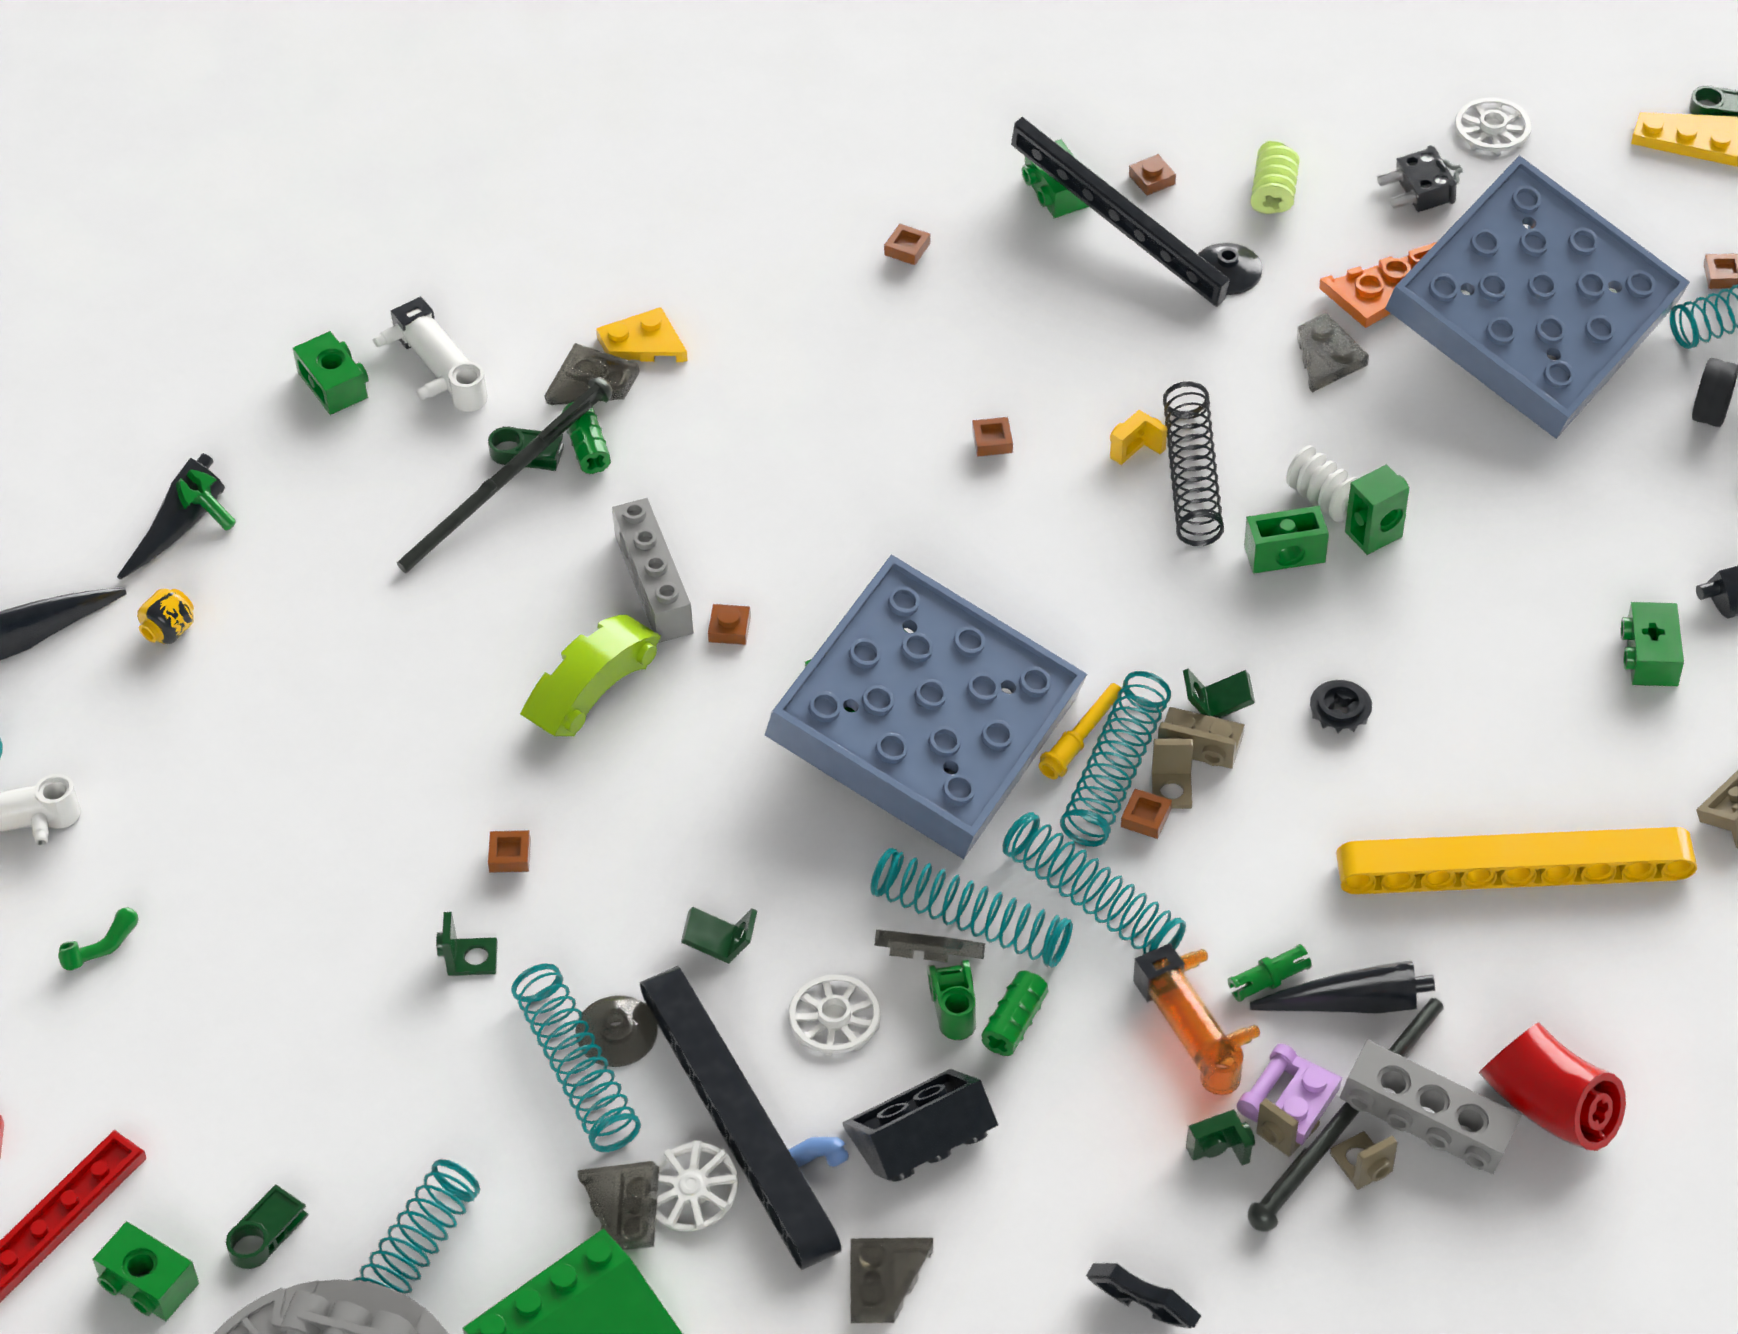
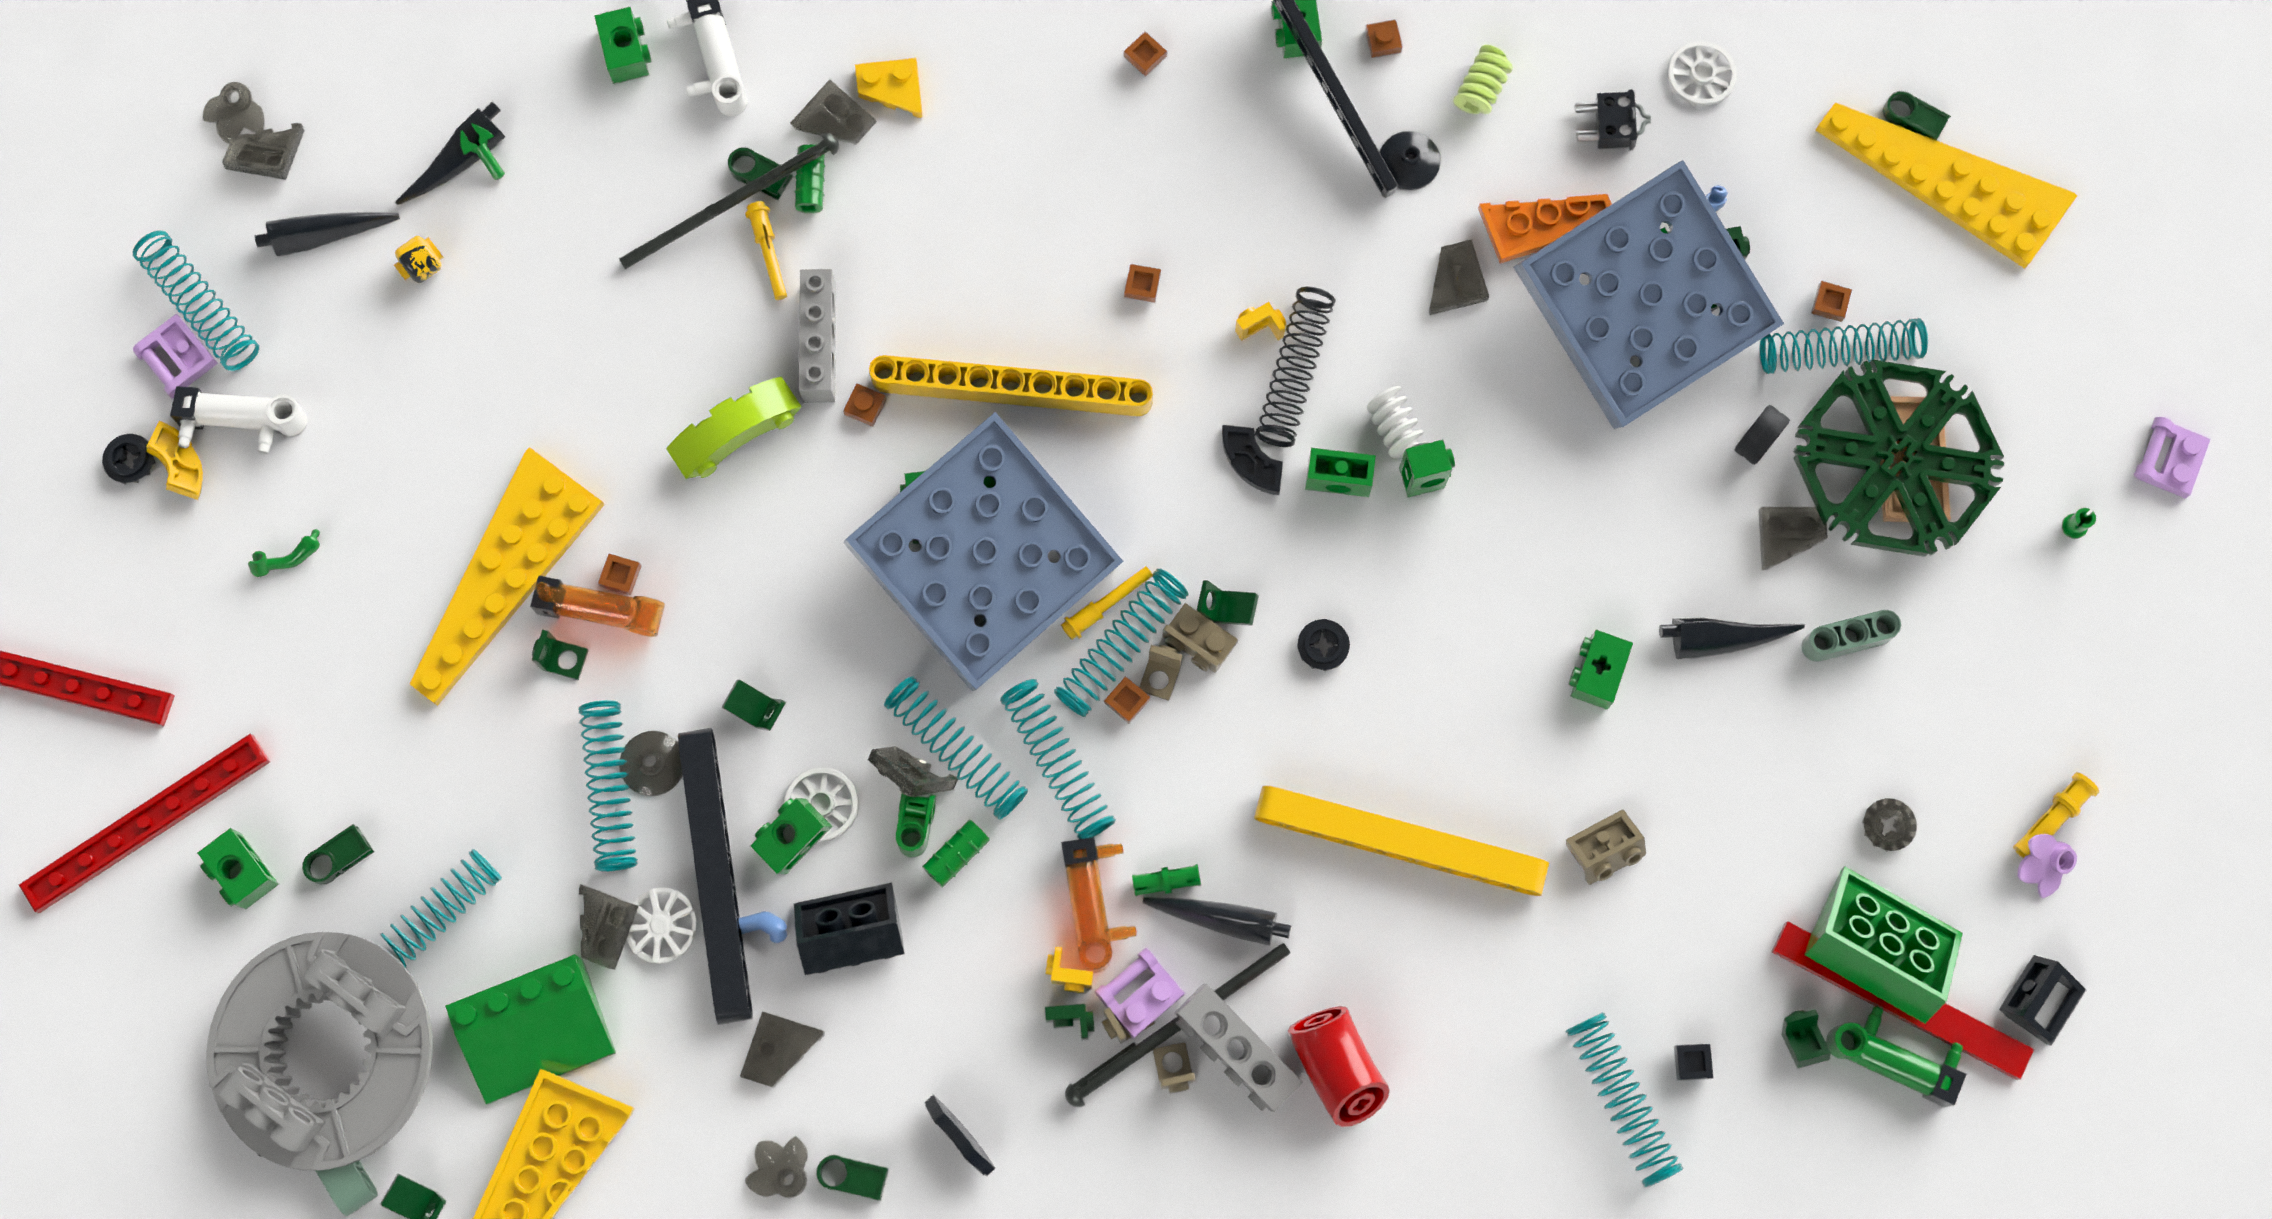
camera: 15 degrees right, 25 degrees up
(379, 857) = (525, 539): none -> yellow wing
(540, 482) = (763, 233): none -> yellow pin
(541, 881) = (635, 614): none -> clear orange piece
(814, 1067) = (808, 827): none -> green brick
(854, 564) = (999, 375): none -> yellow beam
(1180, 564) = (1249, 460): none -> black tile
(1199, 1097) = (1072, 979): none -> yellow bracket

